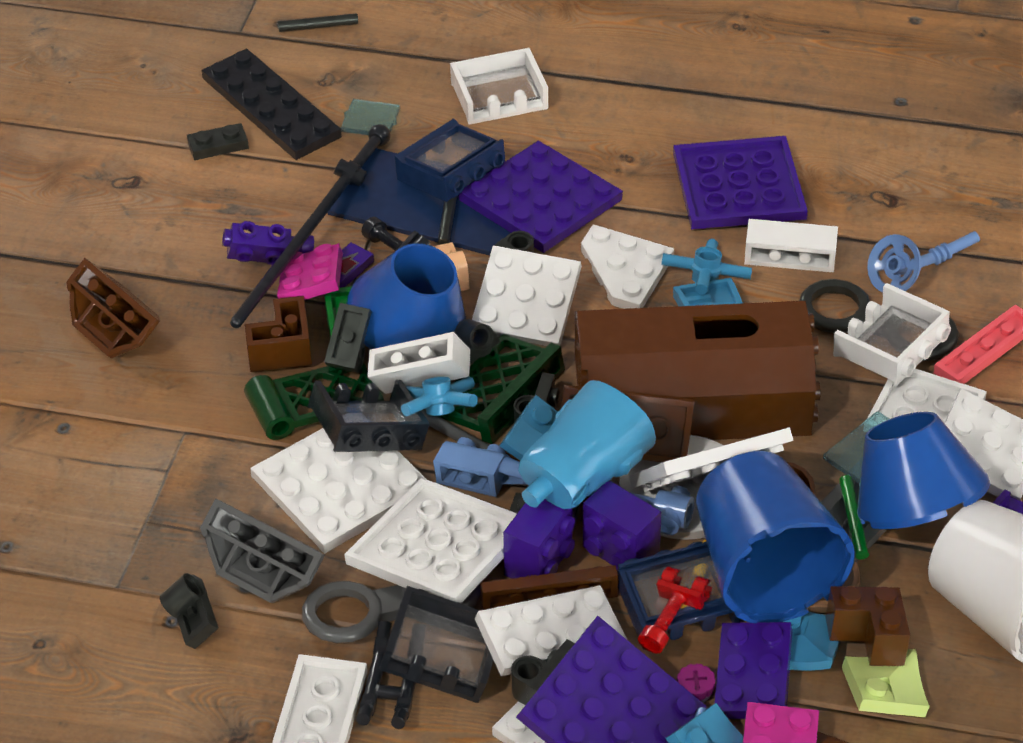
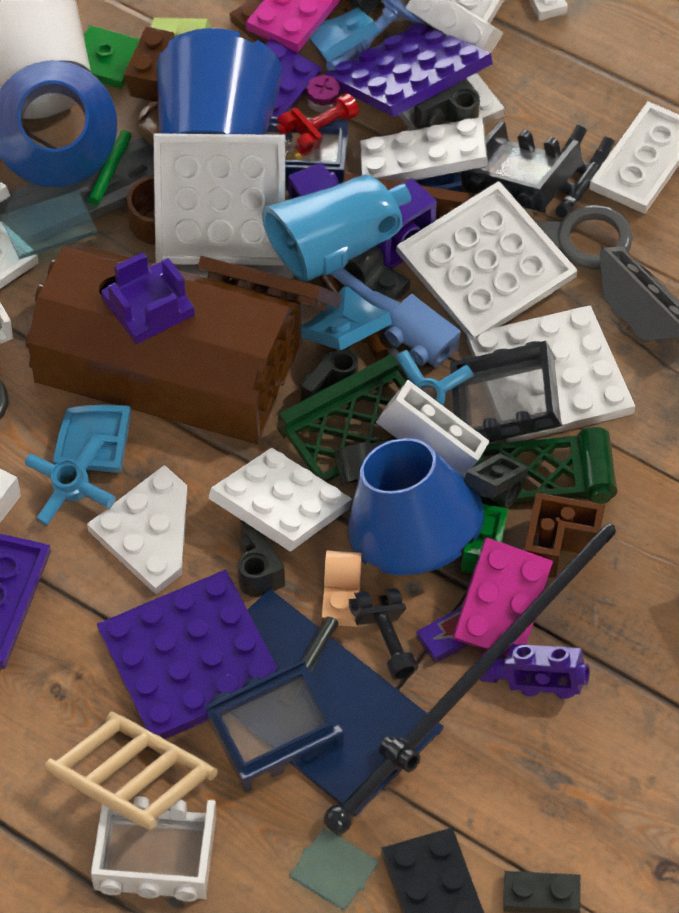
camera: 160 degrees left, 10 degrees up
(533, 73) = (119, 800): none -> tan bar
(704, 311) = (147, 297): none -> dark purple panel
(952, 656) = (109, 54): none -> green plate

